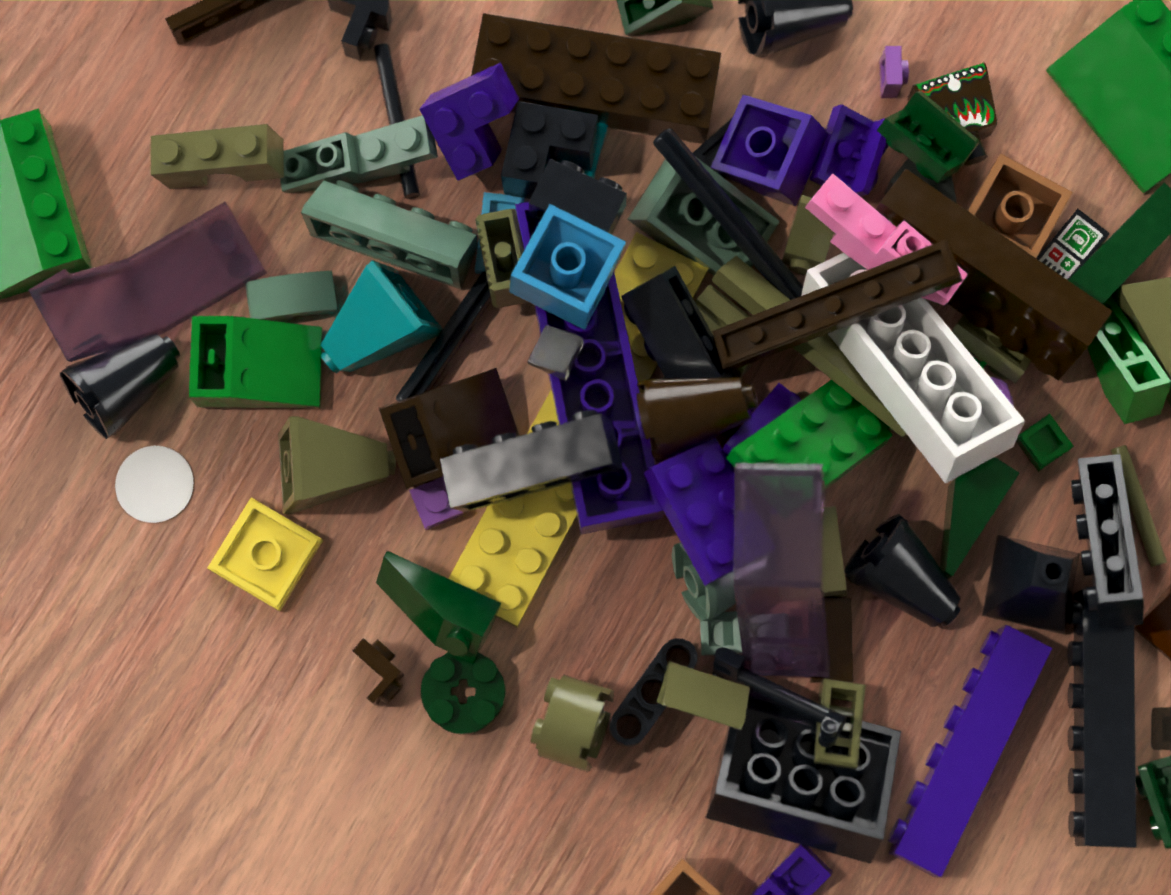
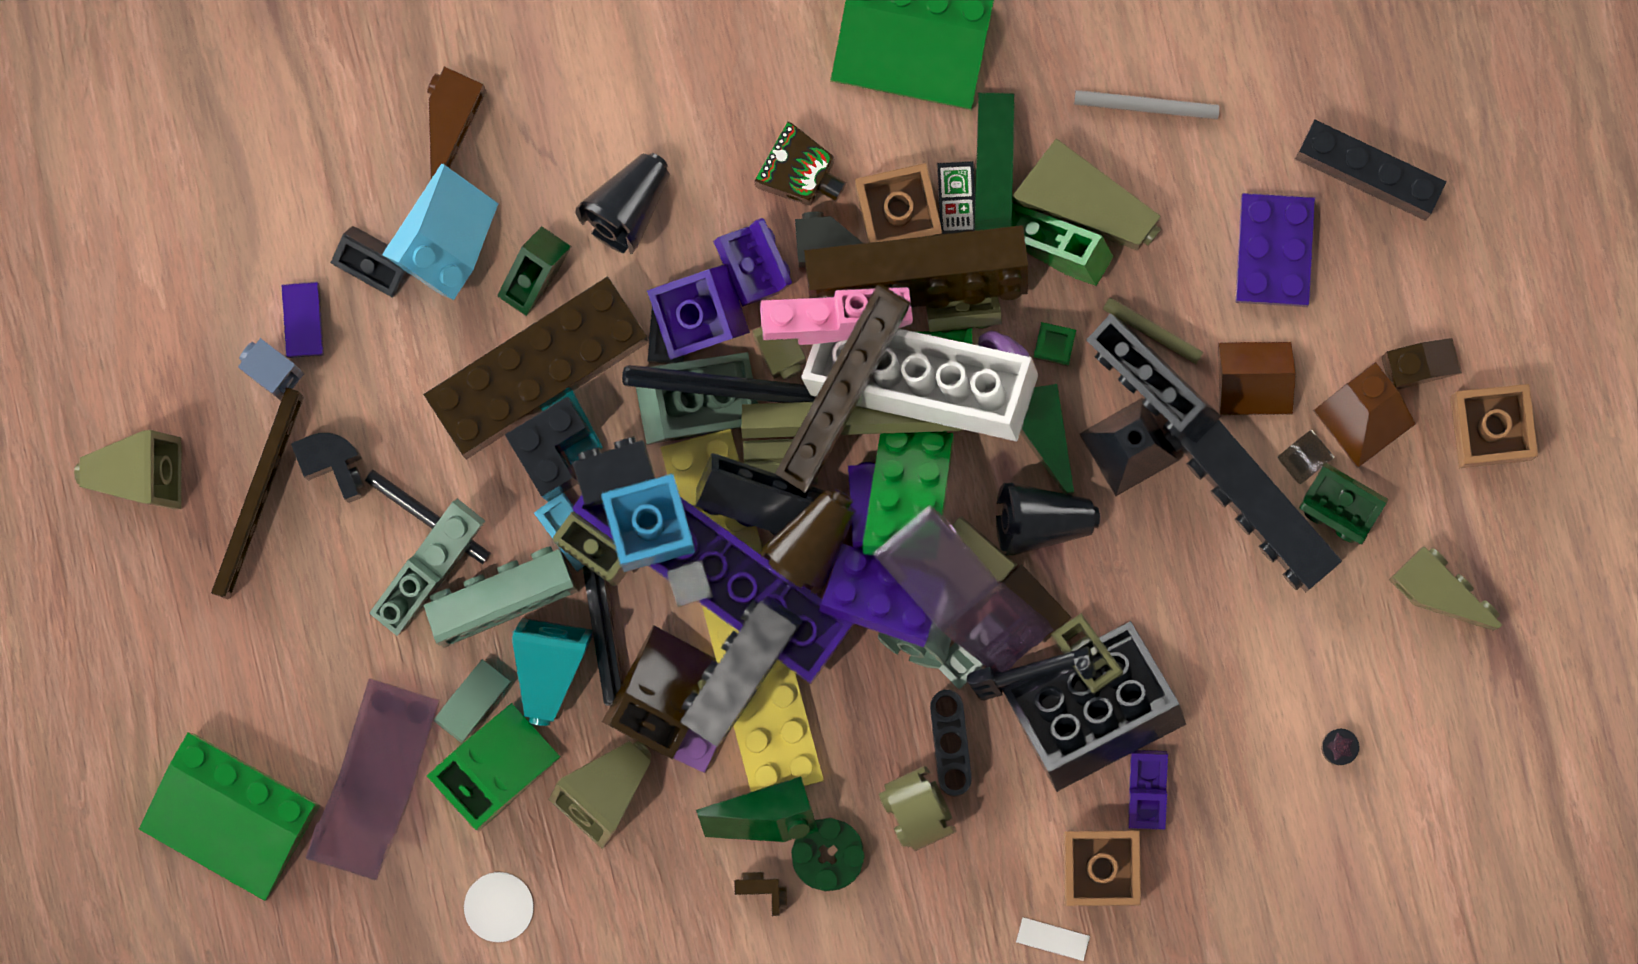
camera: 35 degrees left, 5 degrees up
(120, 381) = (416, 861): black cone -> none
(242, 151) = (335, 653): olive arch -> none
(265, 554) = (616, 885): light yellow tile -> none
(462, 116) = (478, 476): dark purple brick -> none
(704, 695) = (985, 716): olive slope -> none
(893, 71) = (731, 179): medium lavender plate -> none
(929, 137) = (798, 212): dark green bracket -> none
(969, 751) = (1184, 592): dark purple brick -> none

